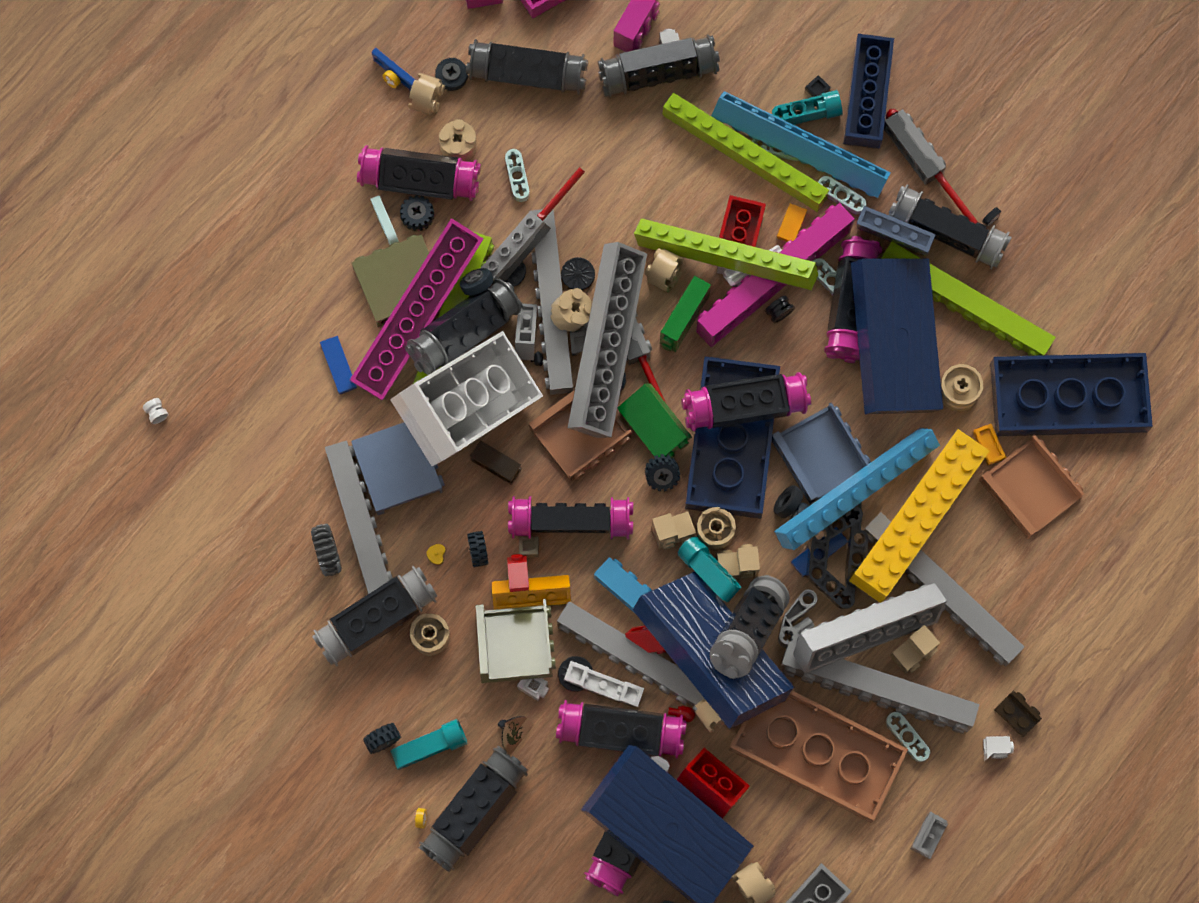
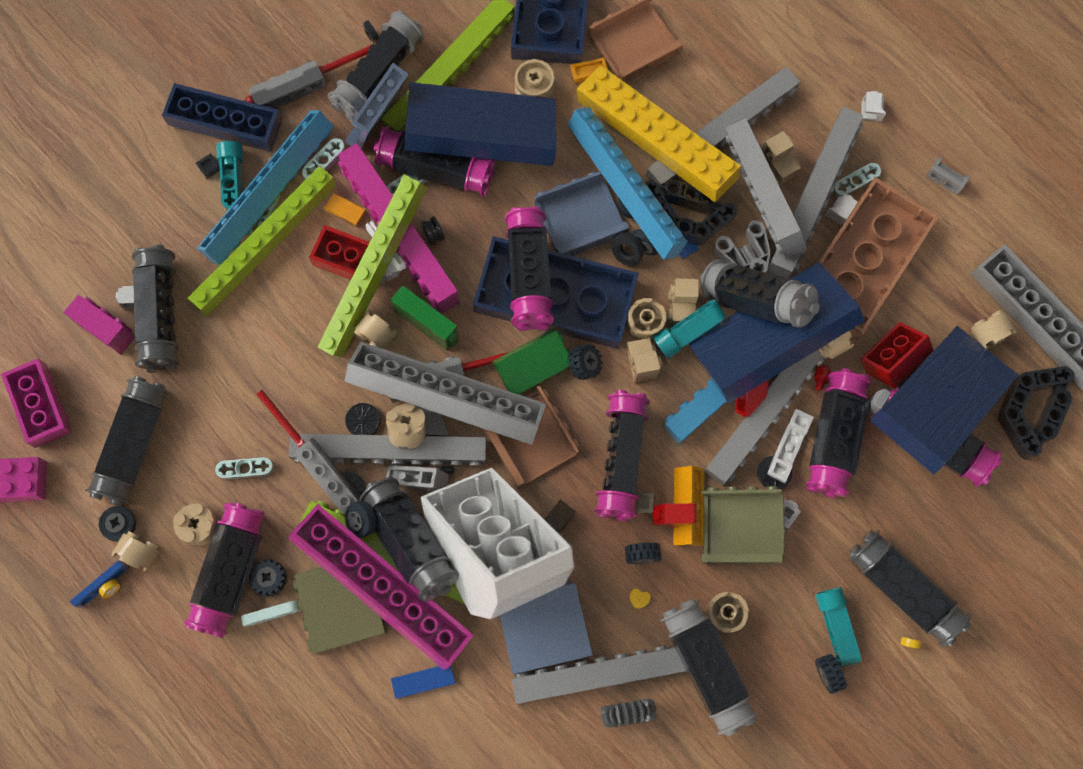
camera: 85 degrees left, 0 degrees up
(514, 731) = (831, 539): shield -> none
(872, 720) = (841, 209): none -> white window
(1018, 713) = (841, 85): dark brown bracket -> none

